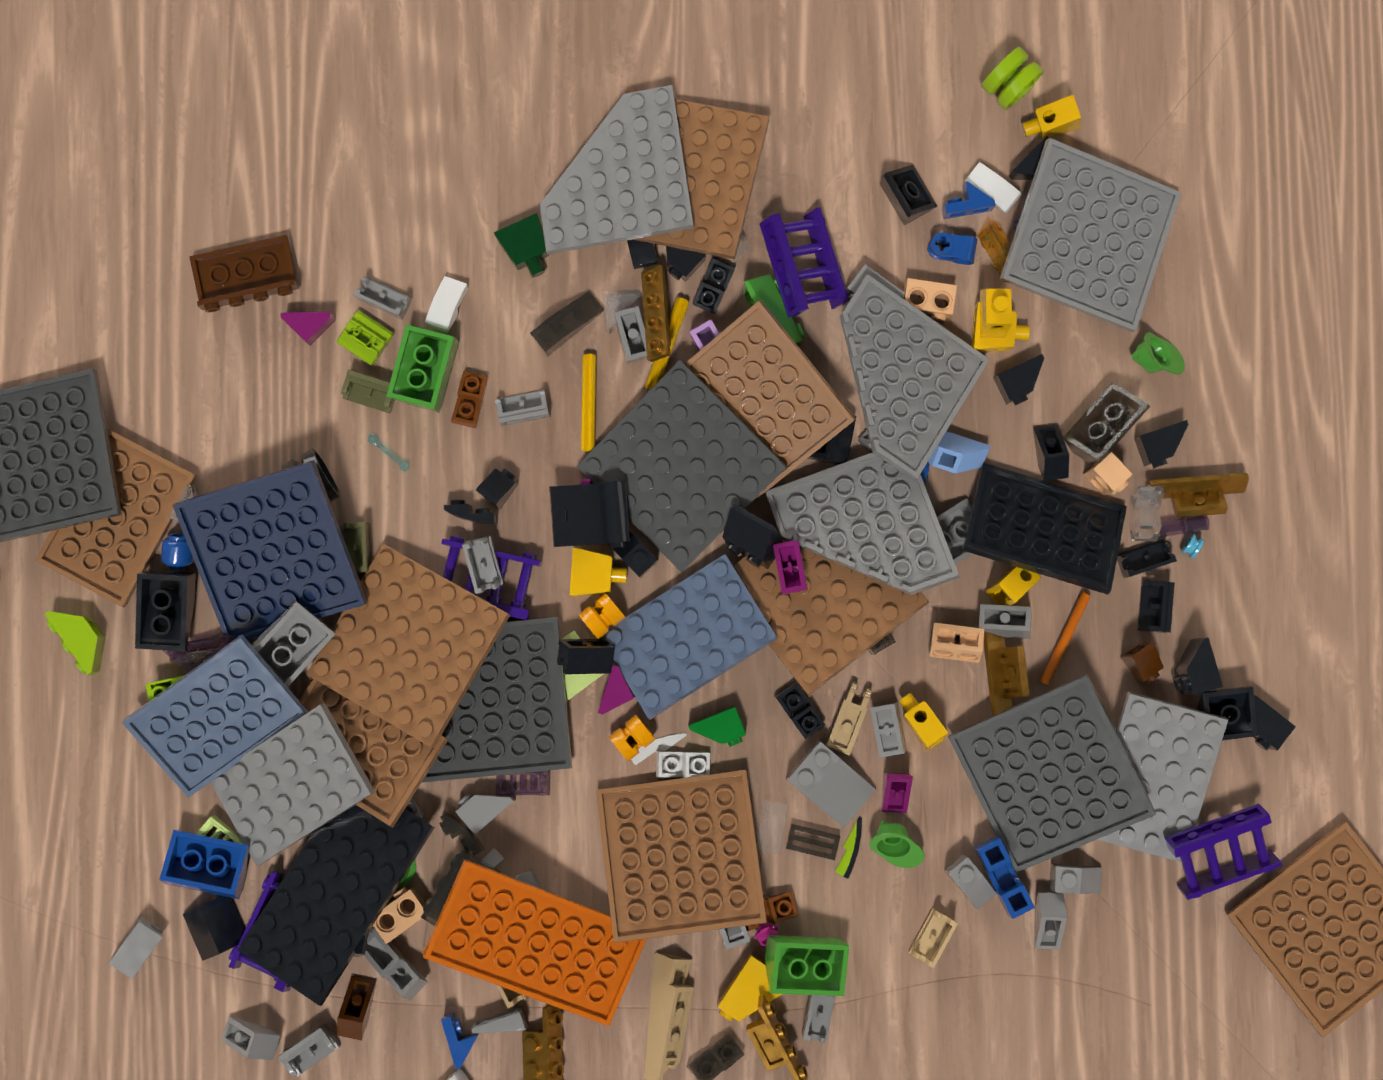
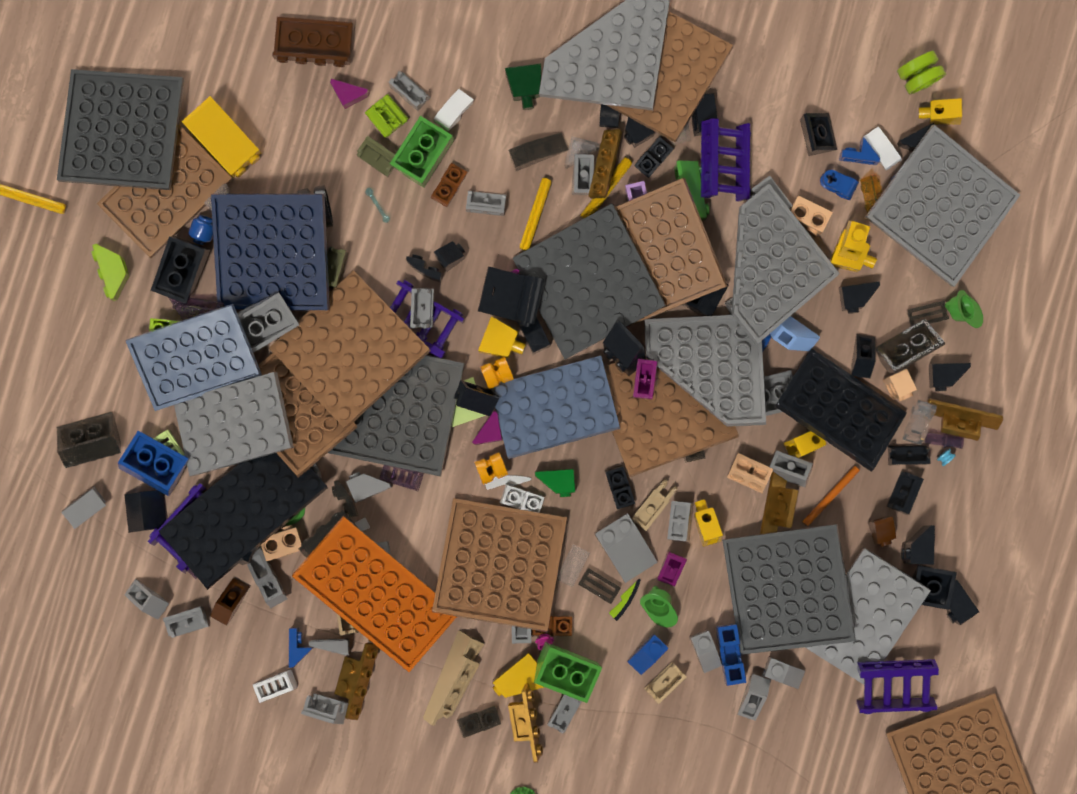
camera: 15 degrees right, 0 degrees up
(115, 860) = (88, 440): none -> clear smoke slope
(166, 428) = (222, 137): none -> yellow slope
(759, 209) = (705, 111): none -> black hinge
(900, 908) = (647, 654): none -> blue slope
(1131, 365) = (943, 310): none -> clear smoke tile

